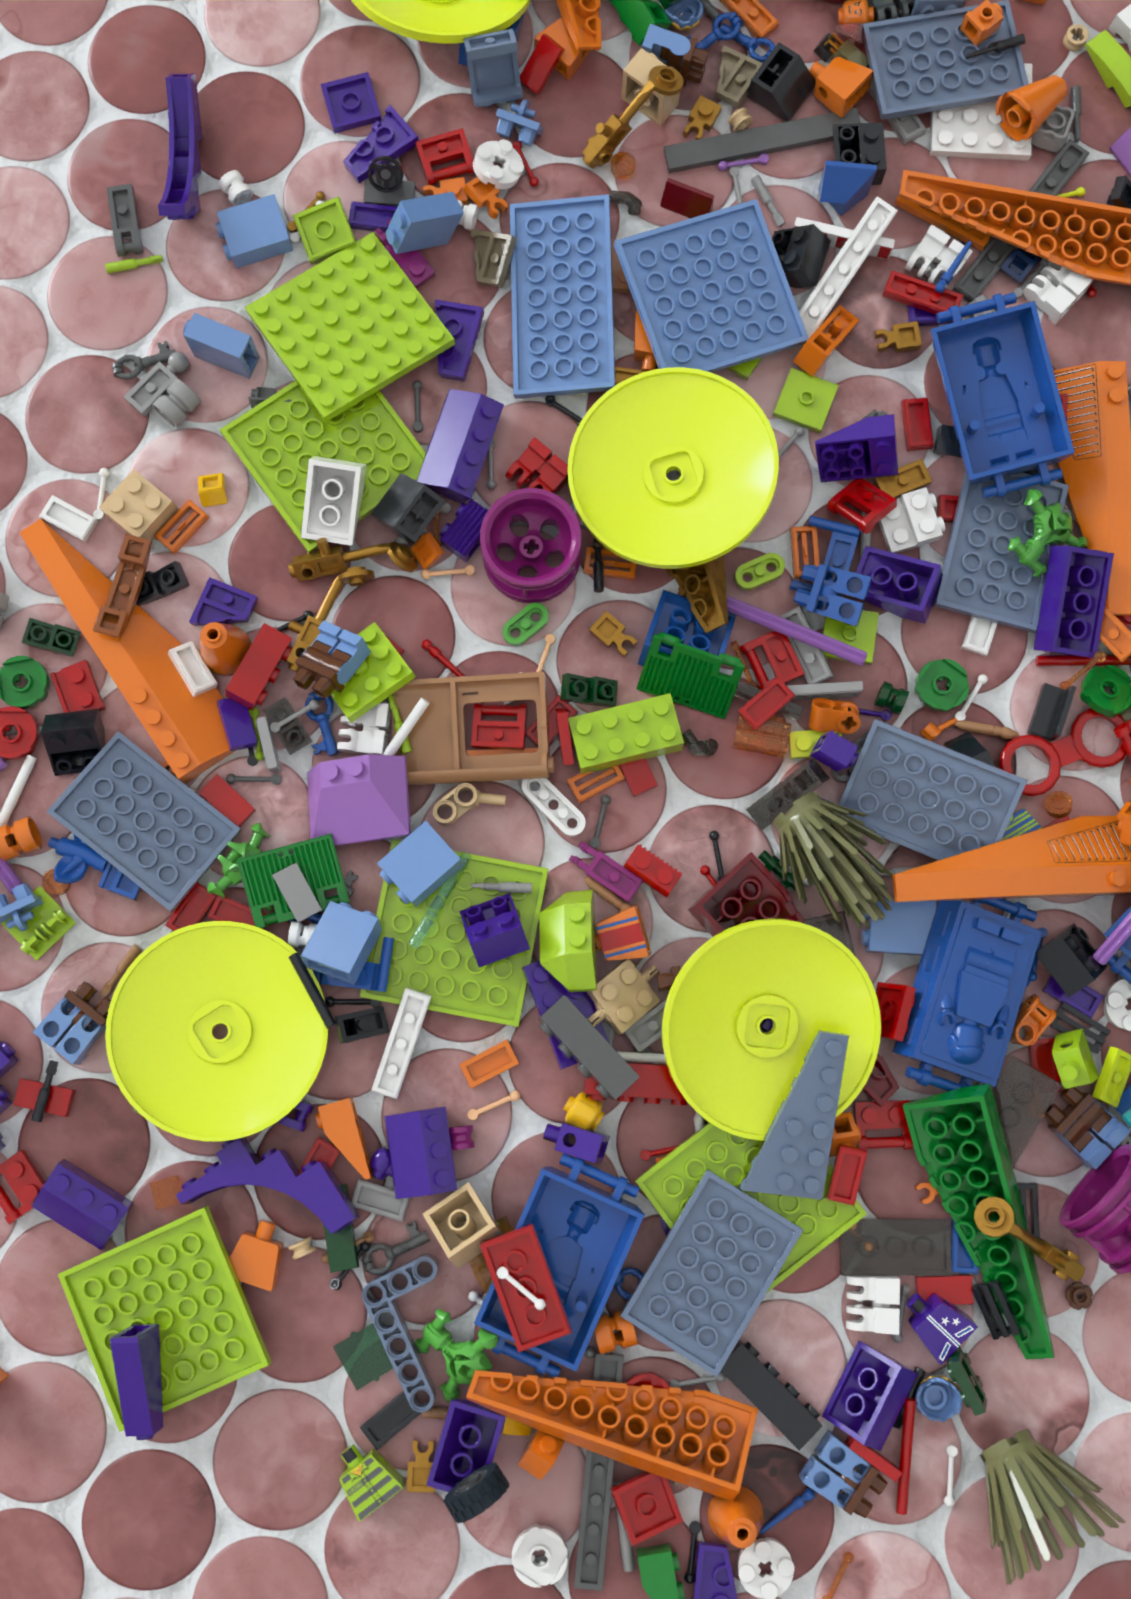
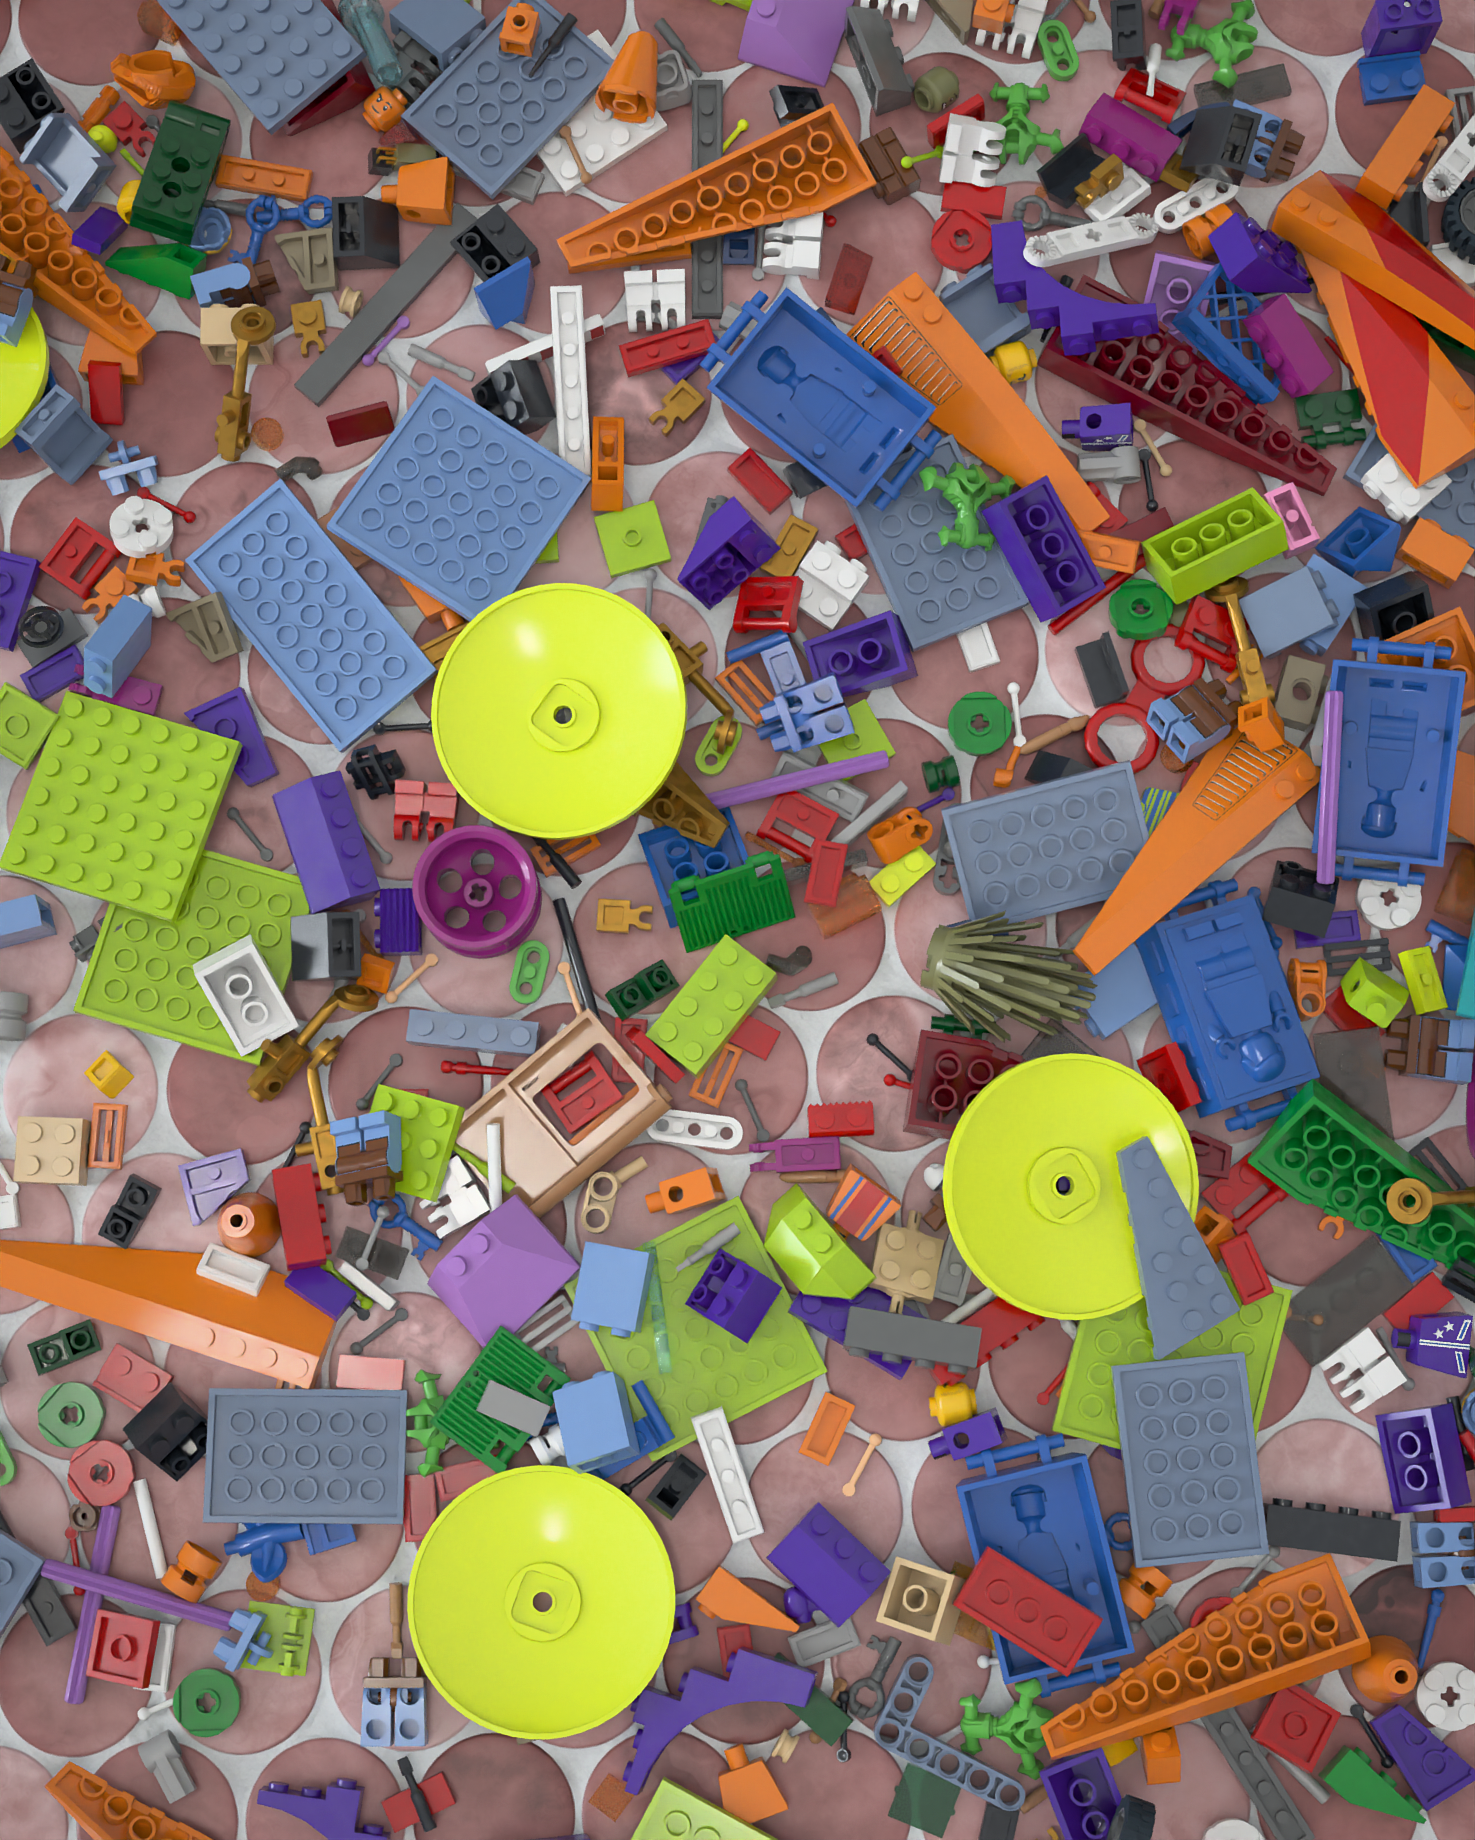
camera: 35 degrees left, 0 degrees up
(125, 587) = (103, 1241): dark orange slope -> none
(312, 990) = (603, 1491): black bar -> none
(361, 846) = (546, 1309): none -> light grey tile
(397, 617) = (395, 1061): none -> dark grey hinge
(458, 634) = (473, 1033): none -> sand blue brick
(461, 1137) = (855, 1519): magenta wheel -> none
(503, 1273) = (996, 1614): white hinge -> none
(526, 843) = (698, 1187): none -> orange torso
(530, 419) = (378, 768): none -> black piece
(563, 636) = (575, 955): none -> black bar
(684, 954) = (934, 1176): none -> white hinge
(694, 770) = (804, 990): none -> light grey piece
(778, 510) = (692, 670): none -> pearl gold piece
(781, 797) = (912, 944): clear smoke slope -> none
(835, 751) = (927, 871): dark purple brick -> none
(948, 276) = (679, 314): blue piece -> none
(960, 112) = (565, 133): none -> medium nougat hinge
(1074, 338) = (848, 280): none -> clear red slope
(1092, 785) = (1195, 718): none -> hips
(1098, 657) = (1108, 585): clear orange hinge -> none

